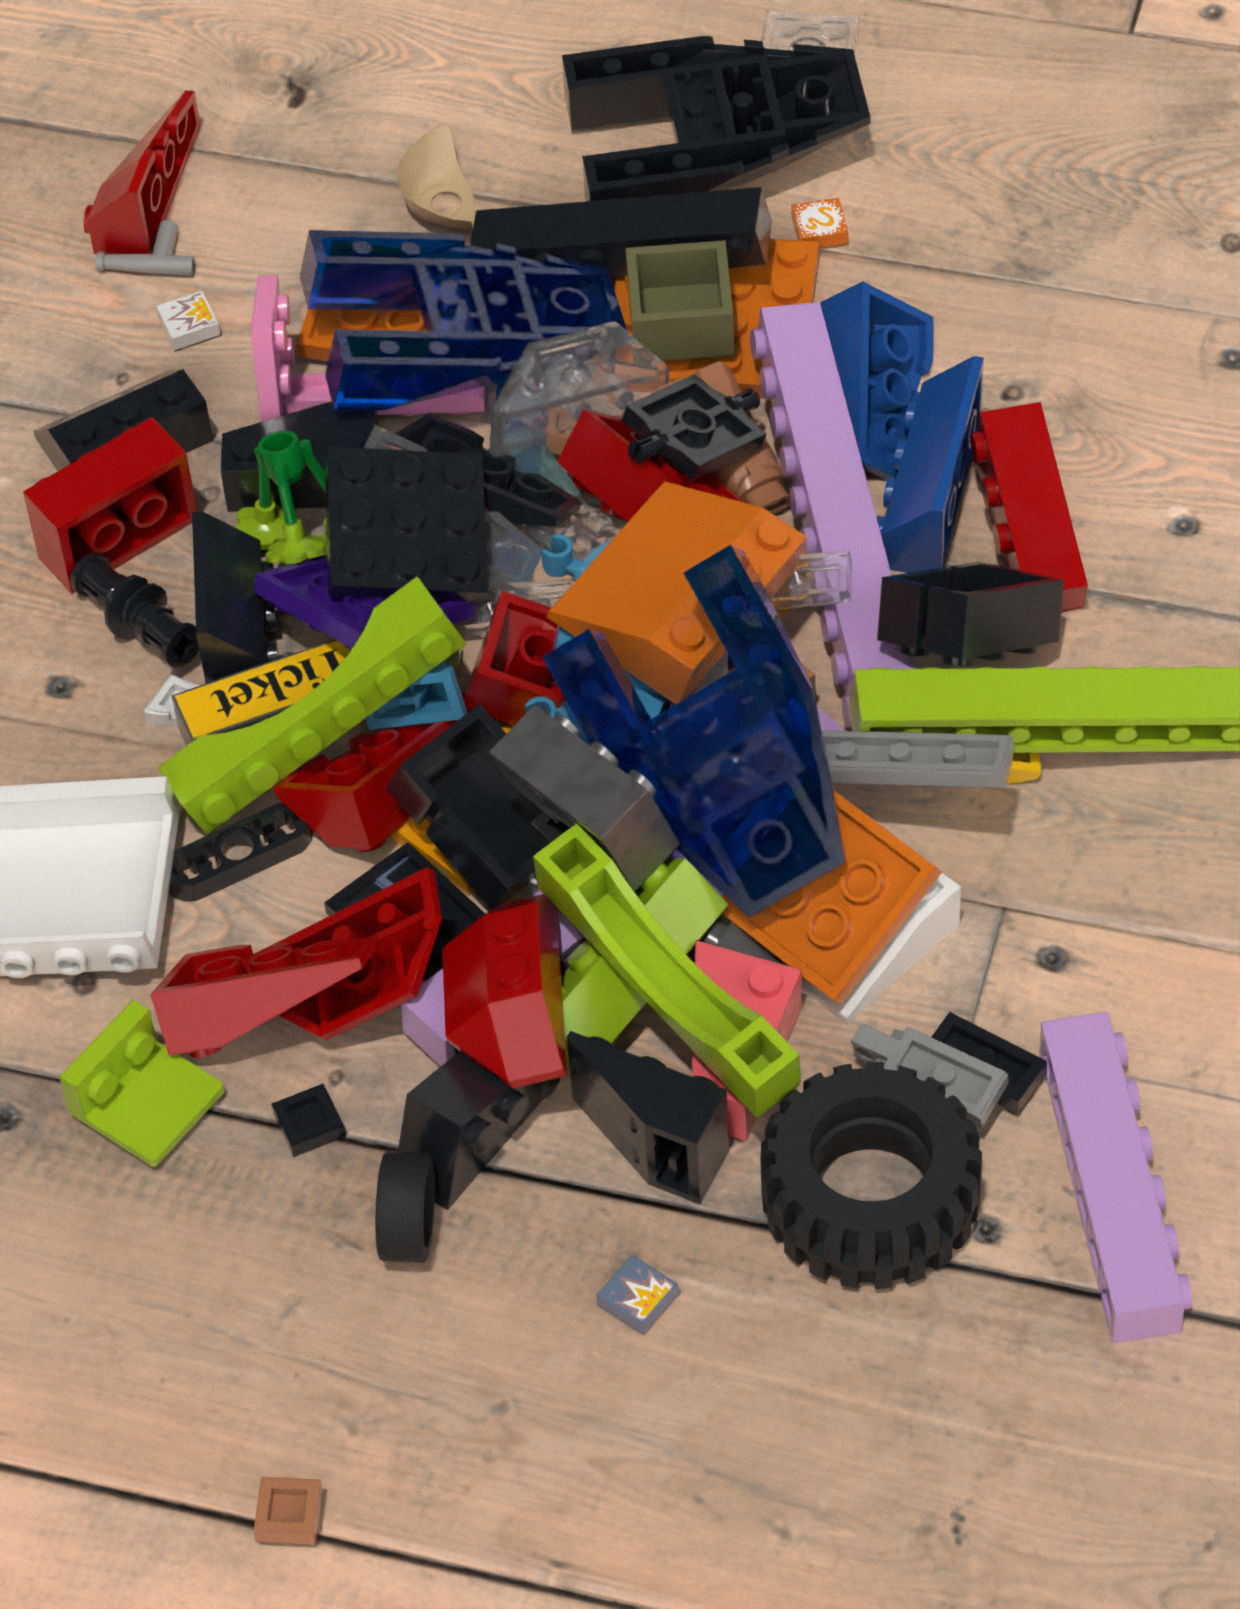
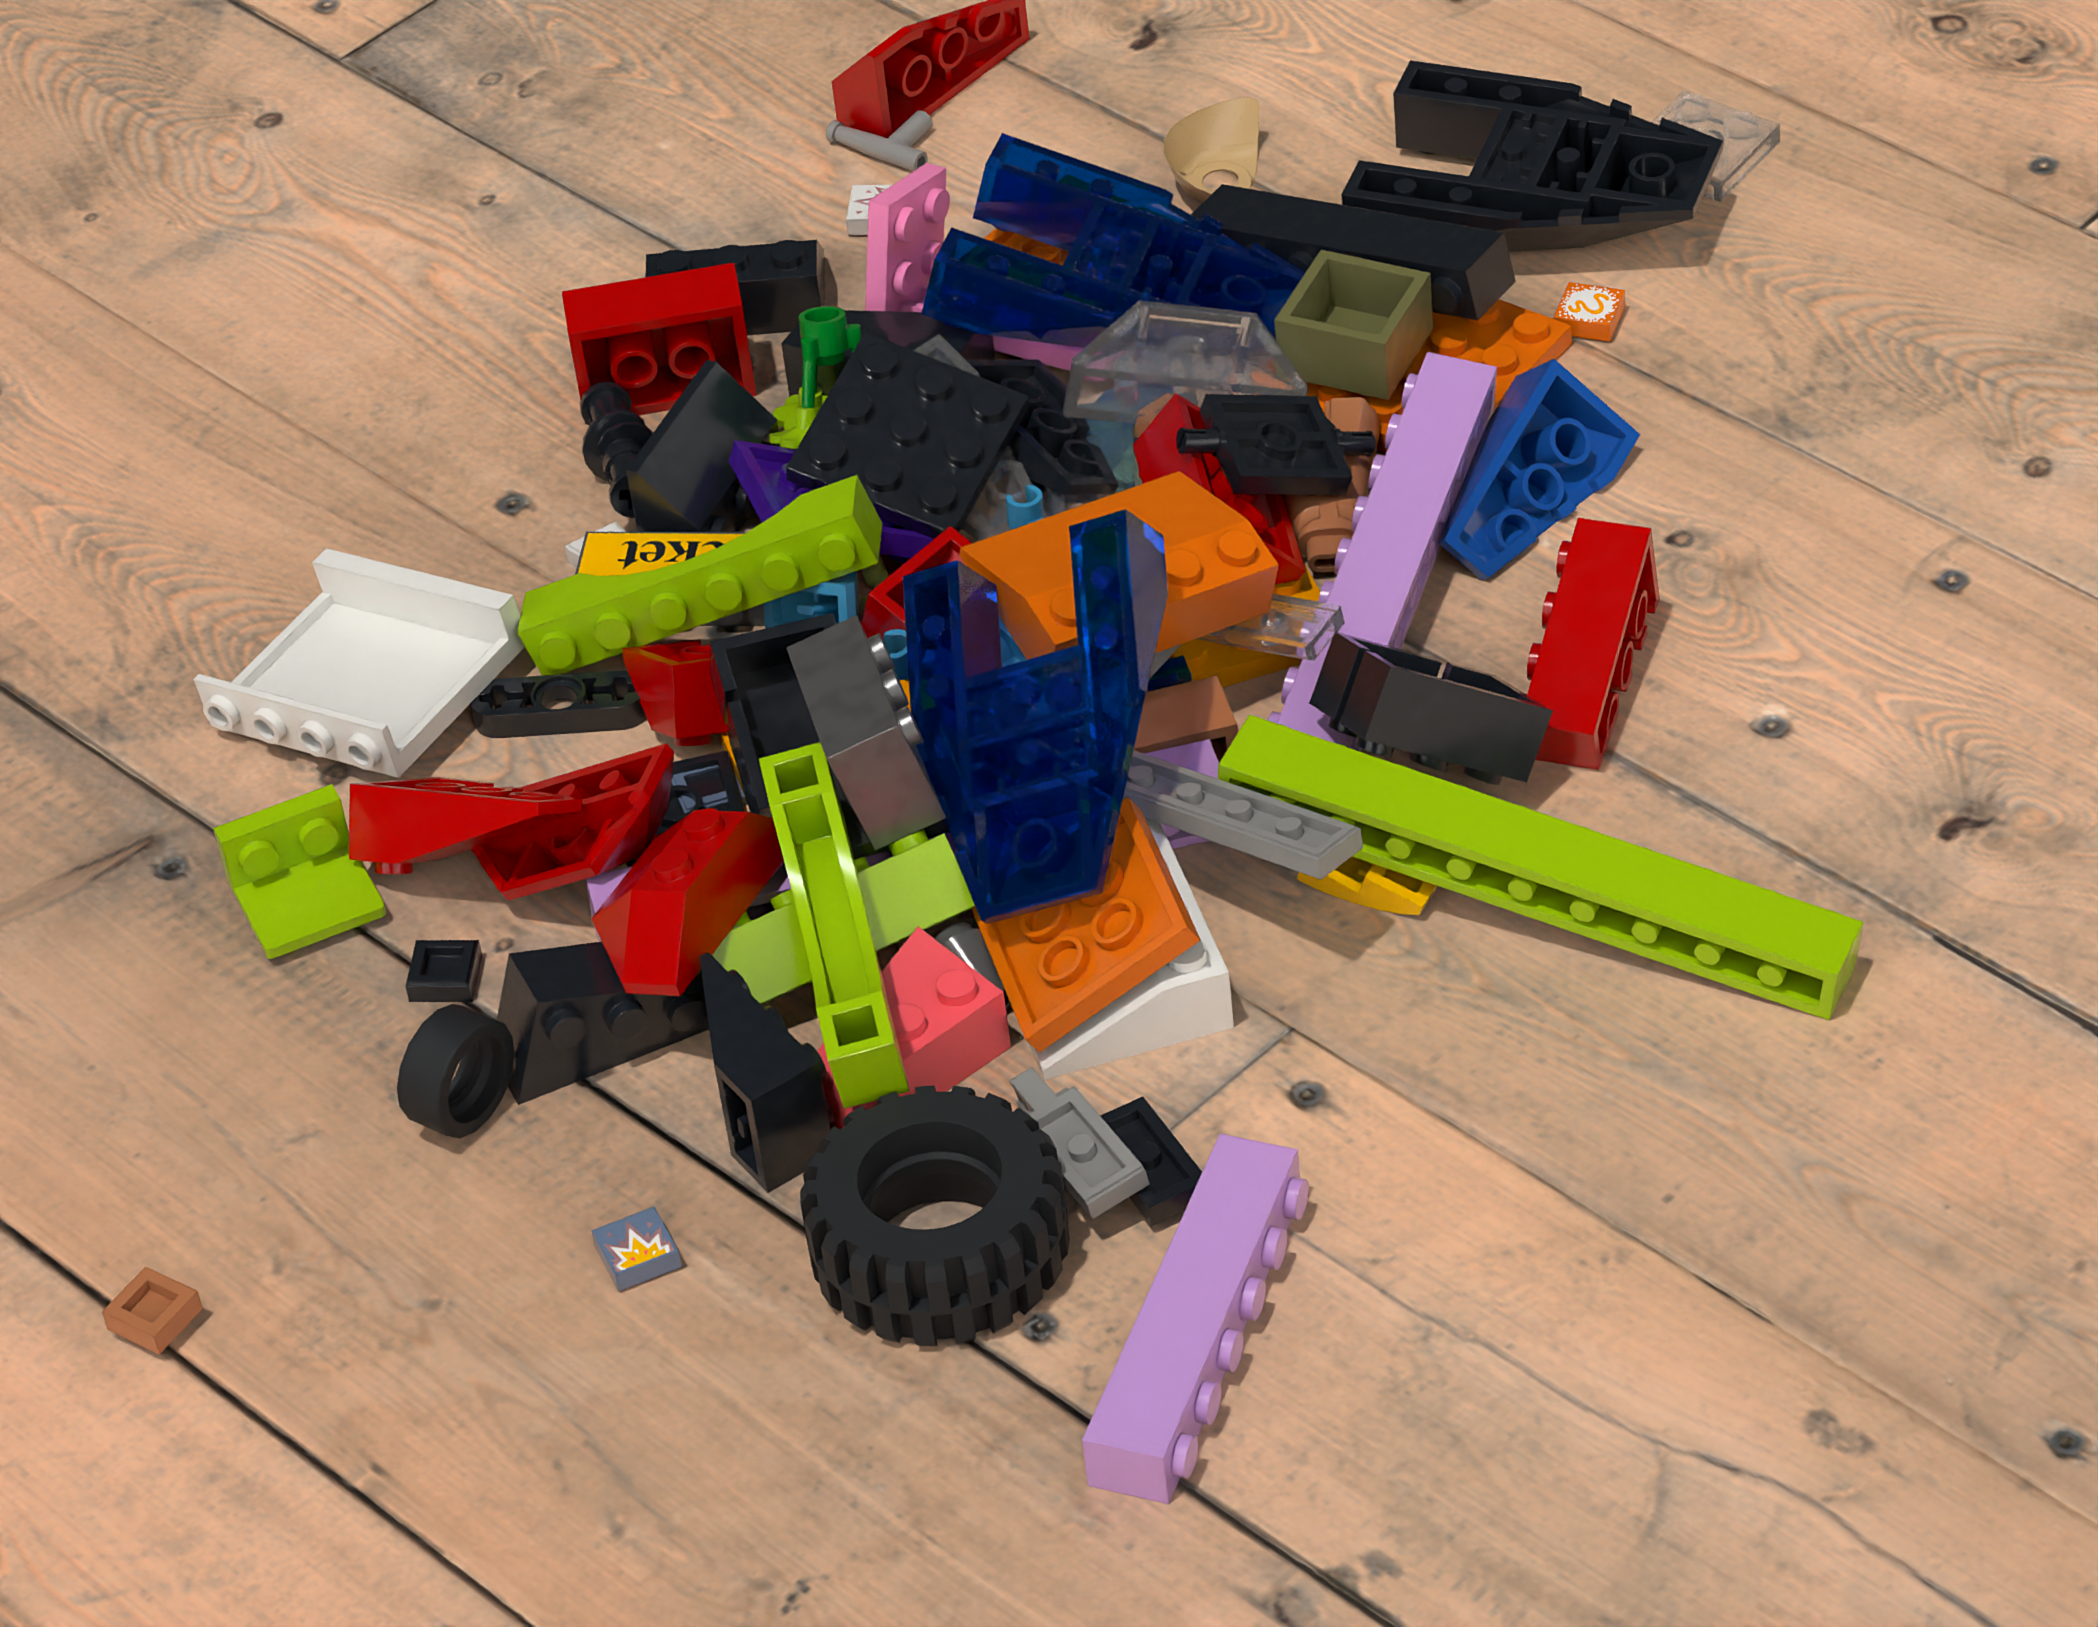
camera: 30 degrees right, 10 degrees down
(932, 469) = (1501, 593): blue slope -> none

